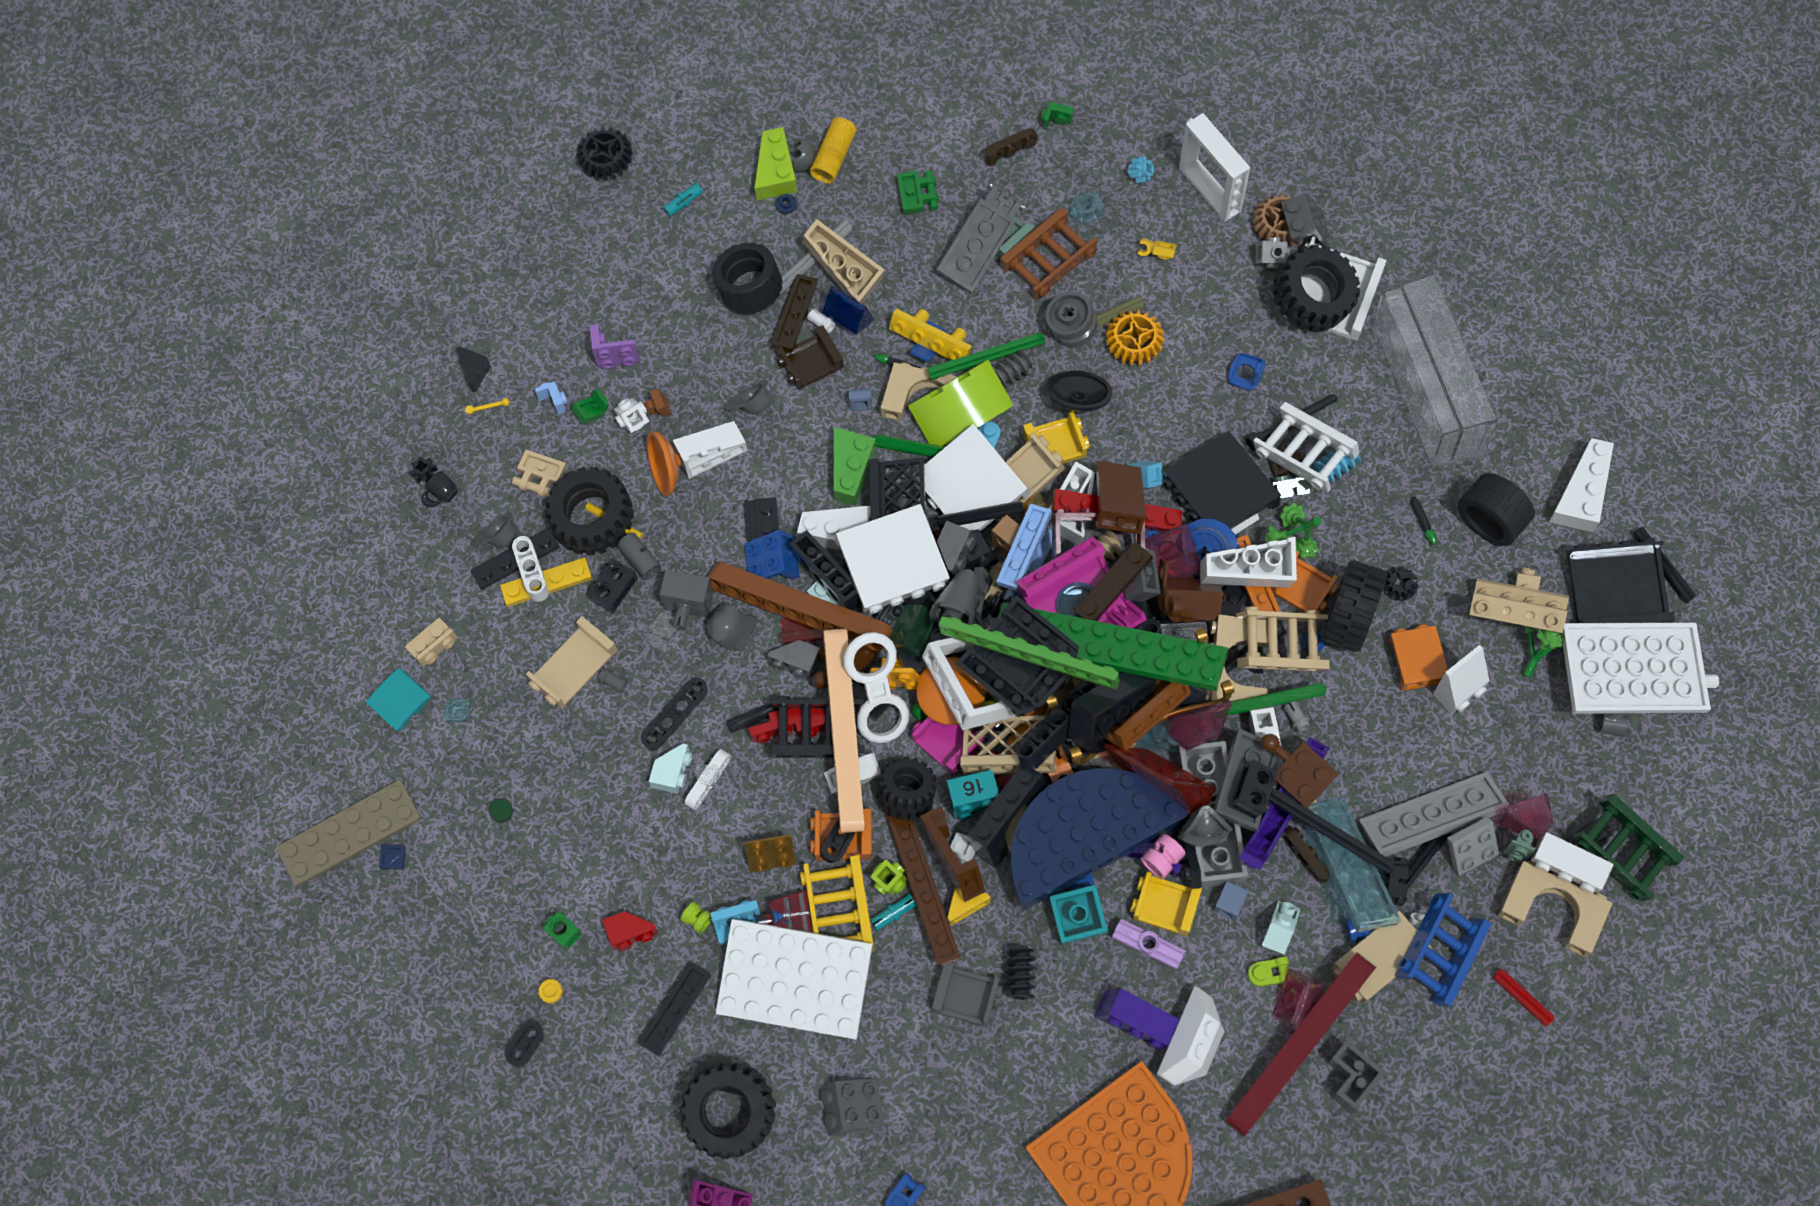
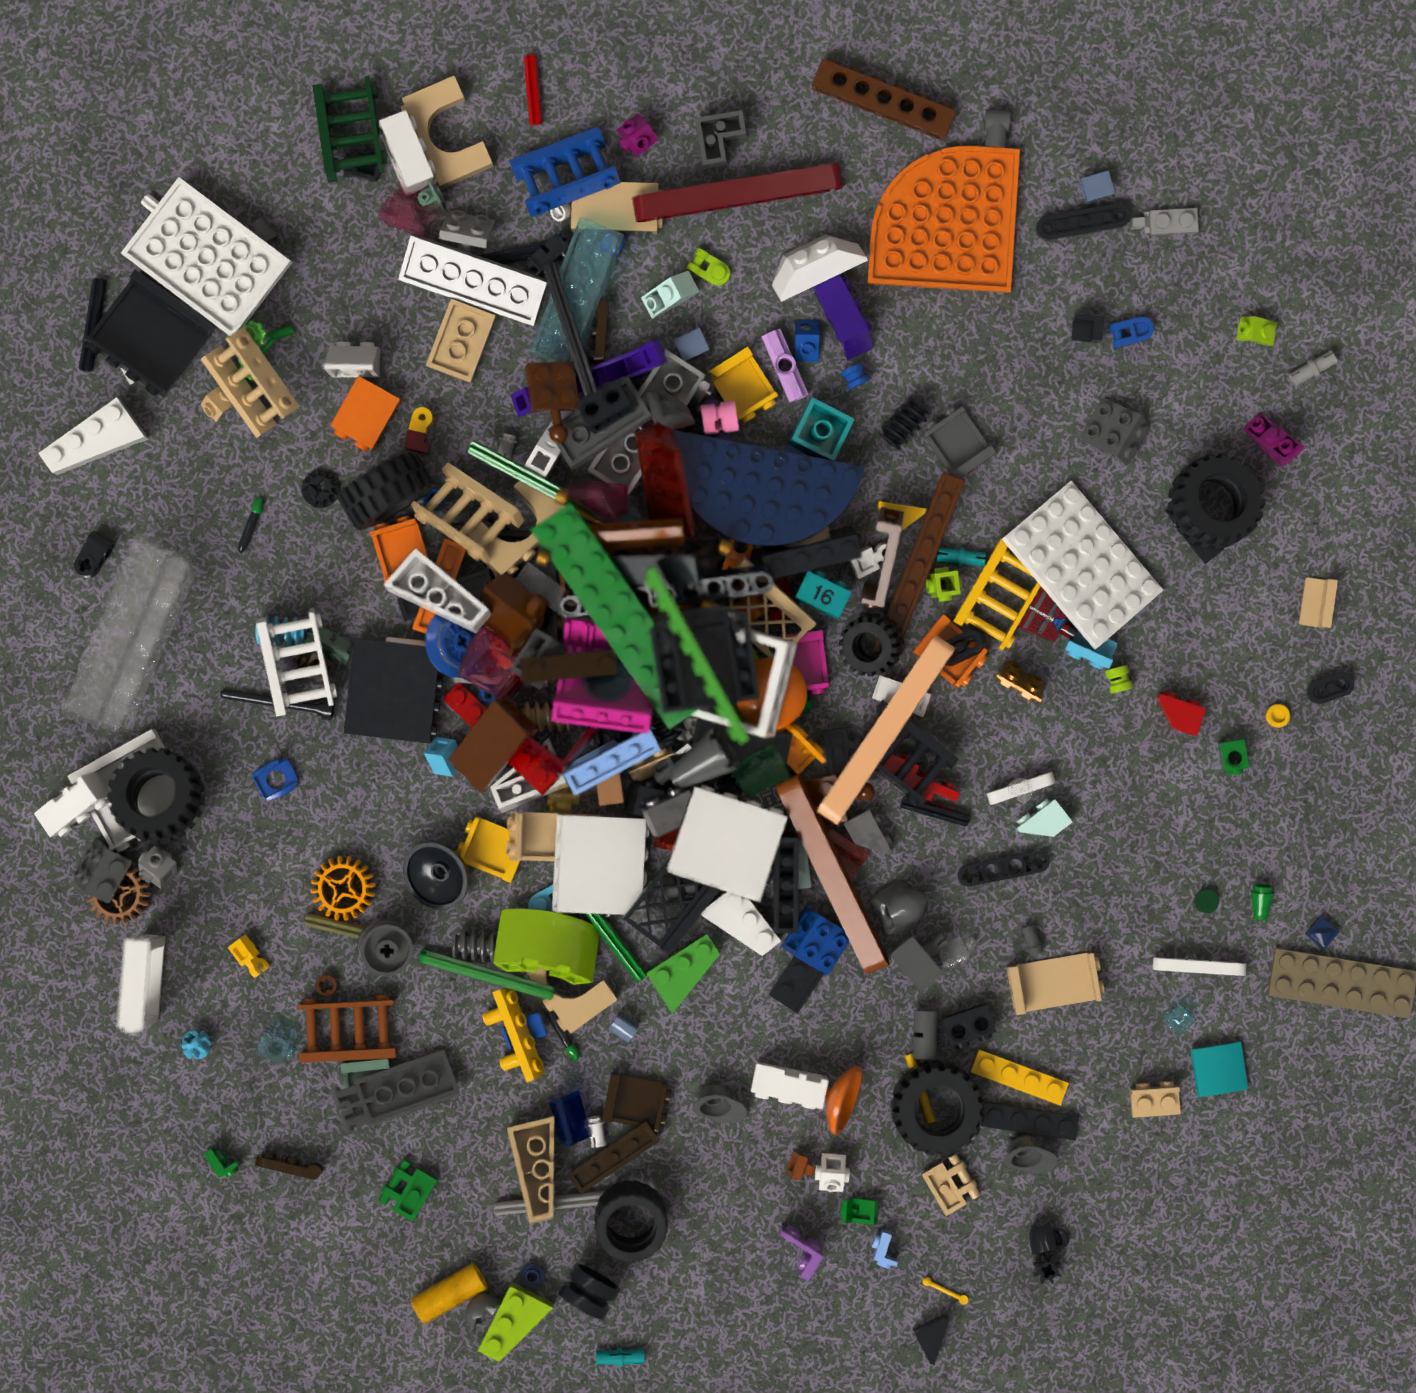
camera: 145 degrees left, 20 degrees up
(458, 843) = (1261, 900): none -> green cone
(469, 758) = (1199, 966): none -> white beam
(528, 559) = (1027, 1106): white beam -> none
(585, 1103) = (1318, 602): none -> tan panel
(674, 1009) = (1192, 619): black plate -> none
(738, 216) = (589, 1291): none -> black wheel
(876, 687) = (831, 743): white bar -> none
(940, 1170) = (1087, 328): none -> black panel
(982, 514) = (618, 827): black axle -> none
(1085, 277) = (323, 978): none -> reddish brown bush
(1088, 981) = (855, 376): none -> blue wheel
(1148, 976) = (806, 341): none -> blue bracket
(1292, 517) = (369, 584): bright green plant -> none
(1297, 997) = (709, 228): clear pink slope -> none
(1365, 245) = (74, 804): none -> white wedge
(1369, 676) = (420, 422): none -> leg
(1400, 765) = (460, 340): none -> tan plate
(1416, 1025) = (636, 135): none -> magenta brick
(1496, 509) = (191, 476): black tyre -> none
(1509, 412) = (95, 552): none -> black piece

